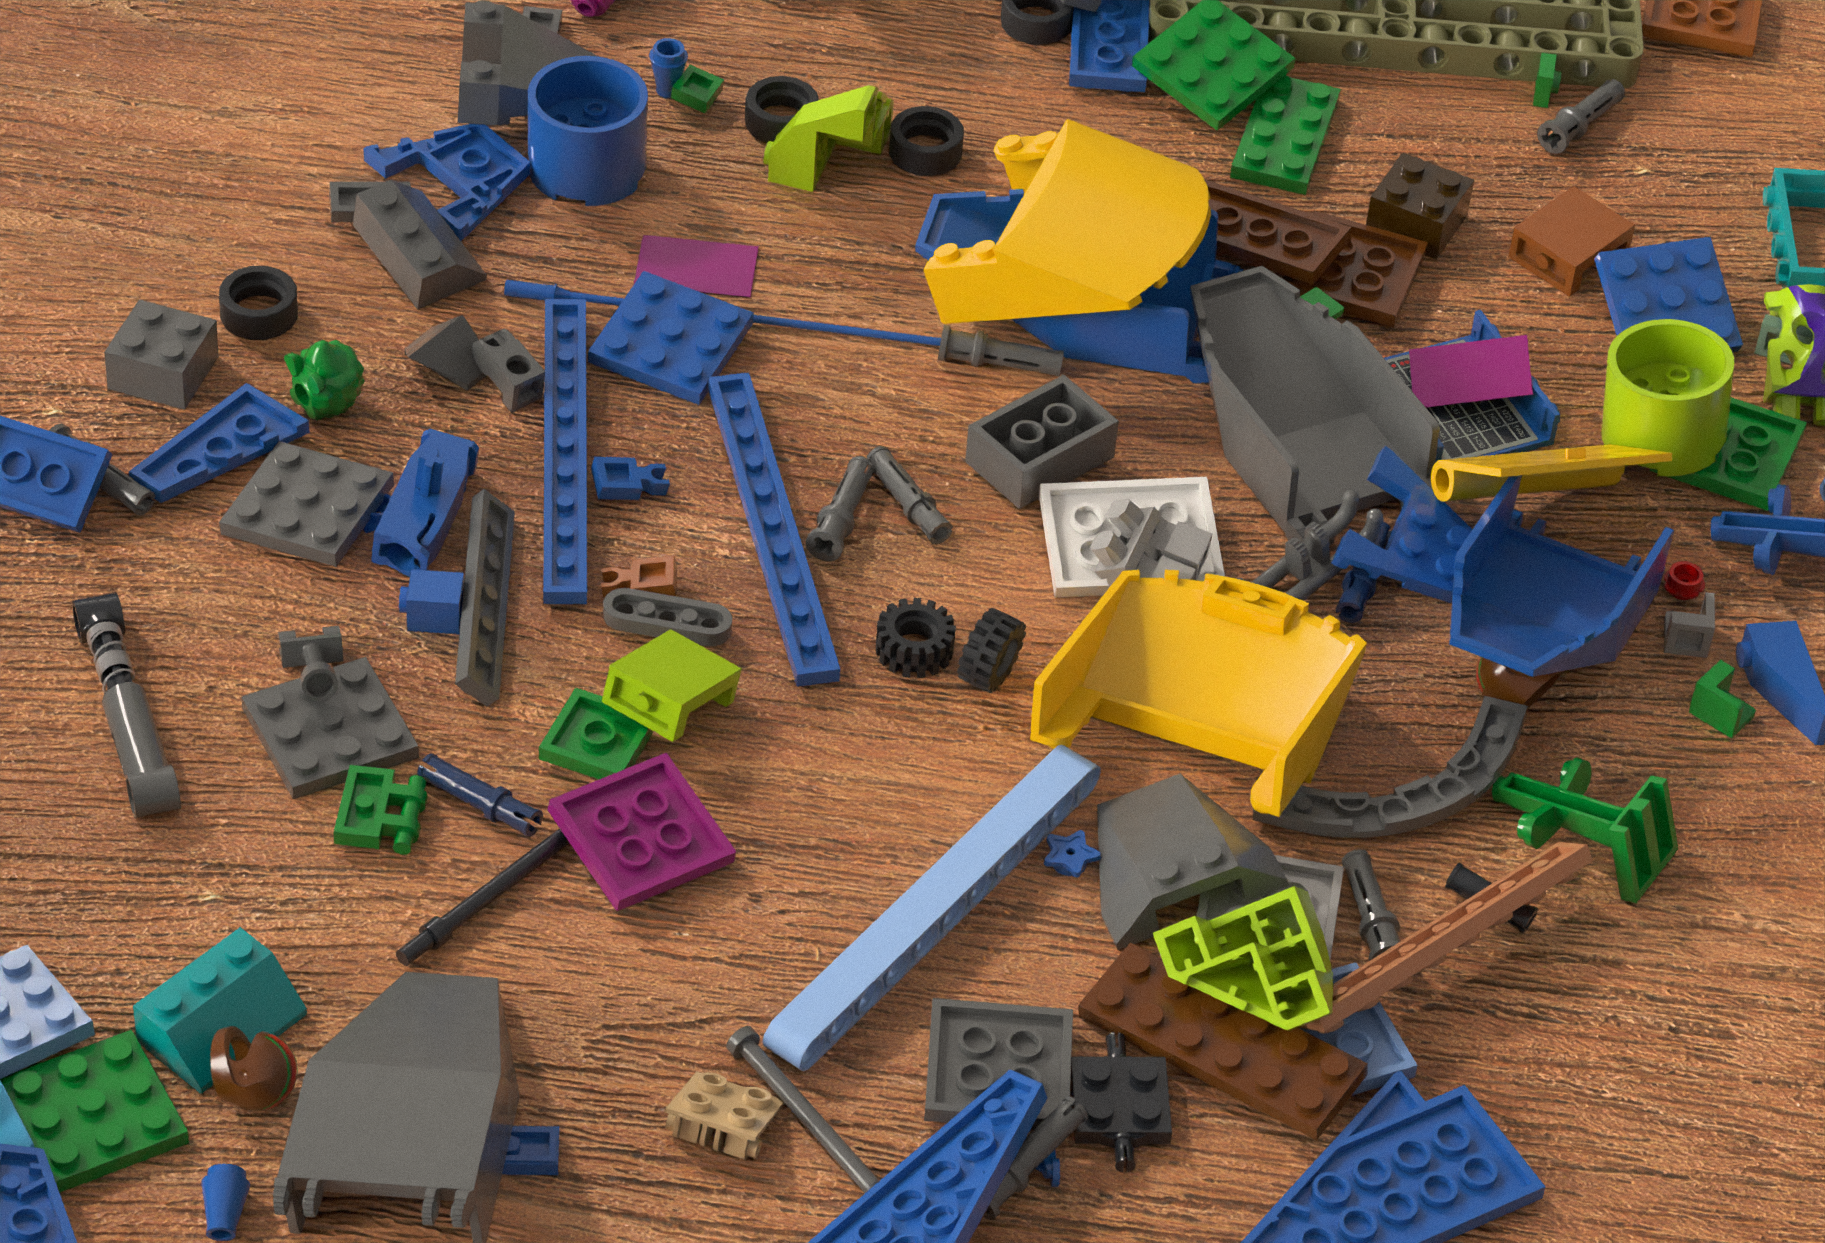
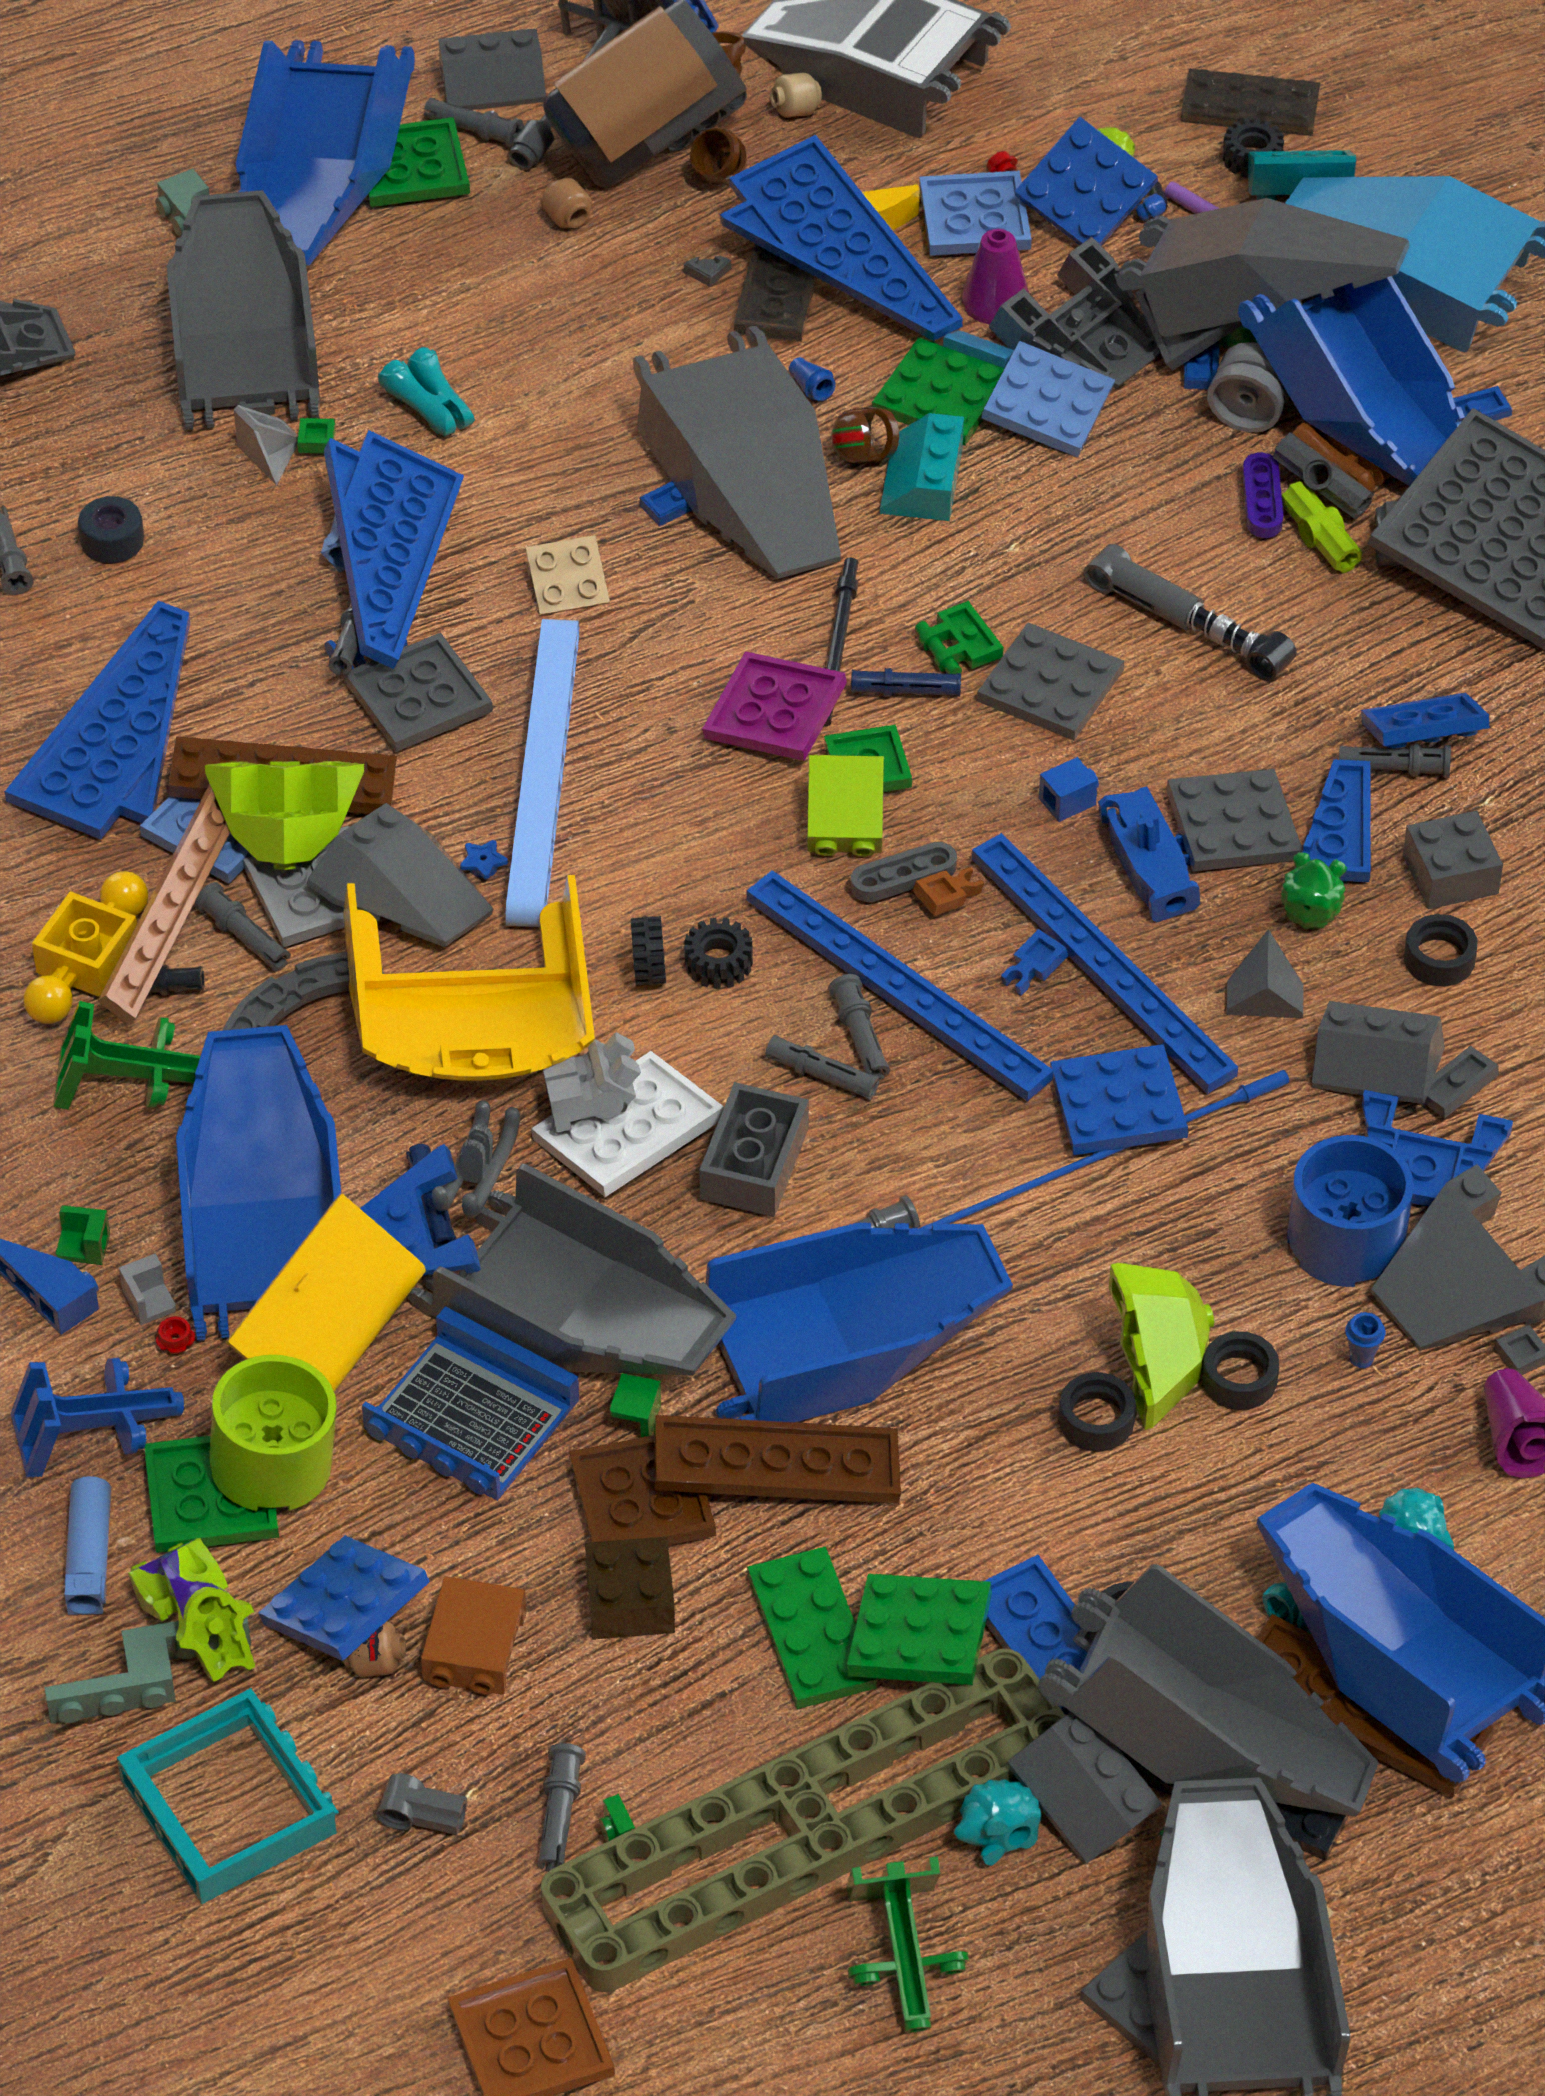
camera: 150 degrees right, 5 degrees up
(314, 652) = (1105, 727): dark grey bar -> none
(485, 598) = (1040, 813): dark grey plate -> none
(510, 368) = (1203, 987): dark grey leg -> none
(697, 88) = (1328, 1350): green plate -> none
(700, 264) = (1170, 1194): magenta sticker -> none
(745, 1044) = (589, 622): dark grey bar -> none
(1086, 236) = (848, 1318): yellow windscreen -> none
(1123, 1101) = (324, 714): black plate -> none
(1471, 371) = (466, 1420): magenta sticker -> none
(1558, 957) = (83, 945): none -> yellow brick
(1699, 169) = (411, 1803): none -> dark grey piece

